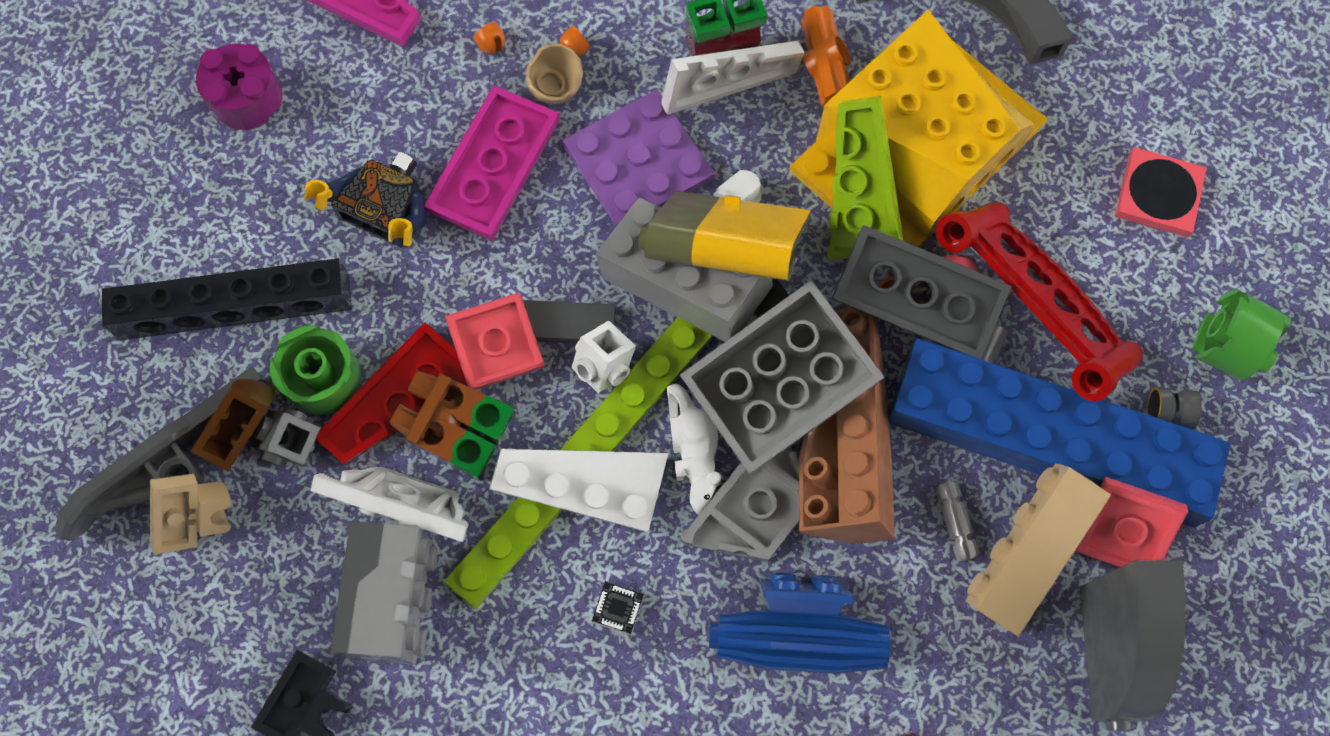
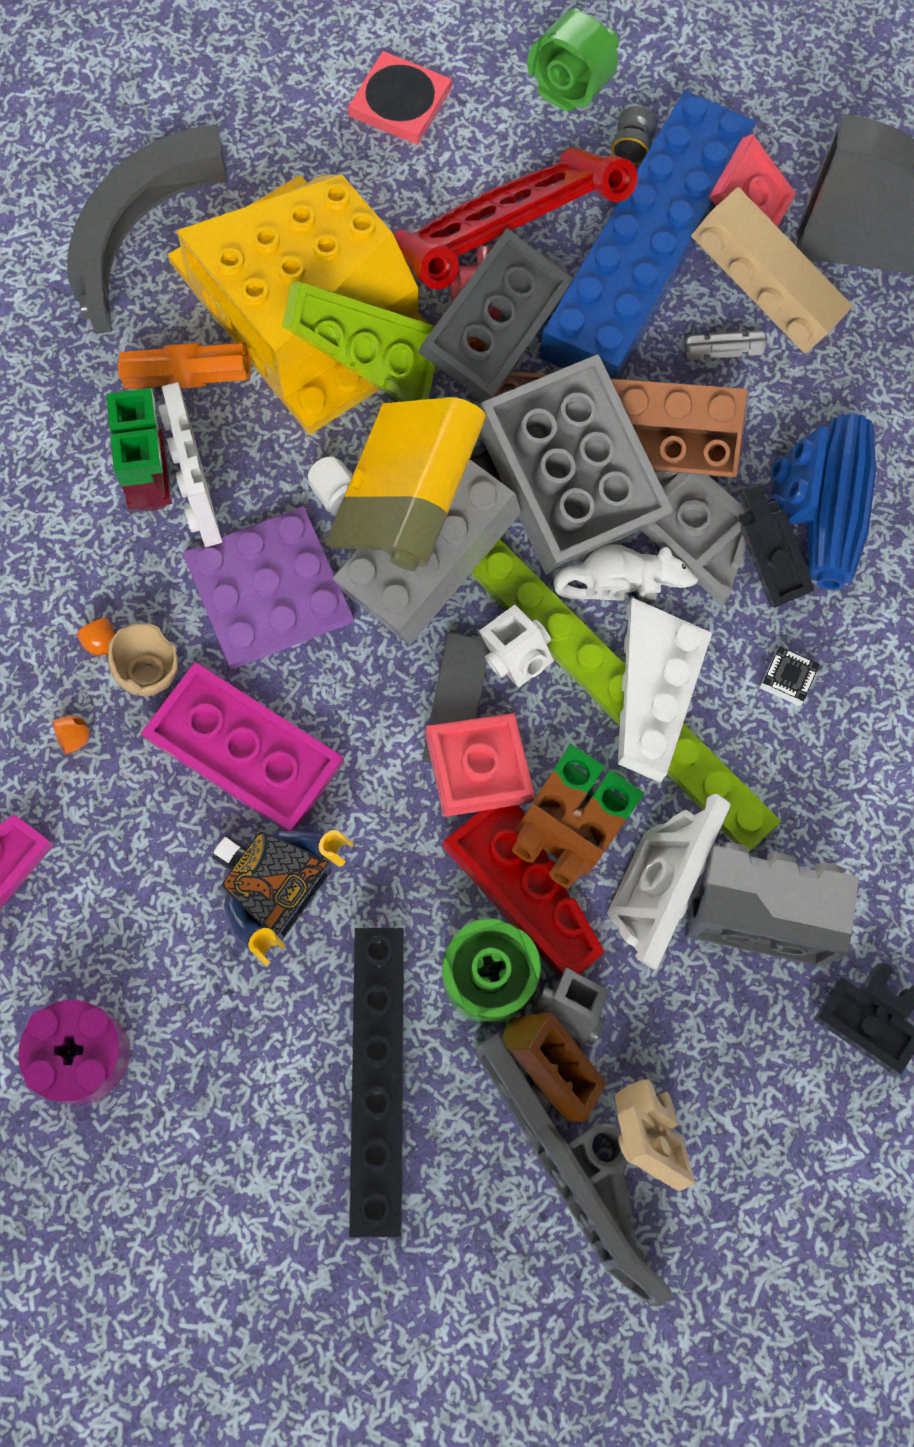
camera: 85 degrees left, 0 degrees up
(736, 575) = (773, 547): none -> black hinge

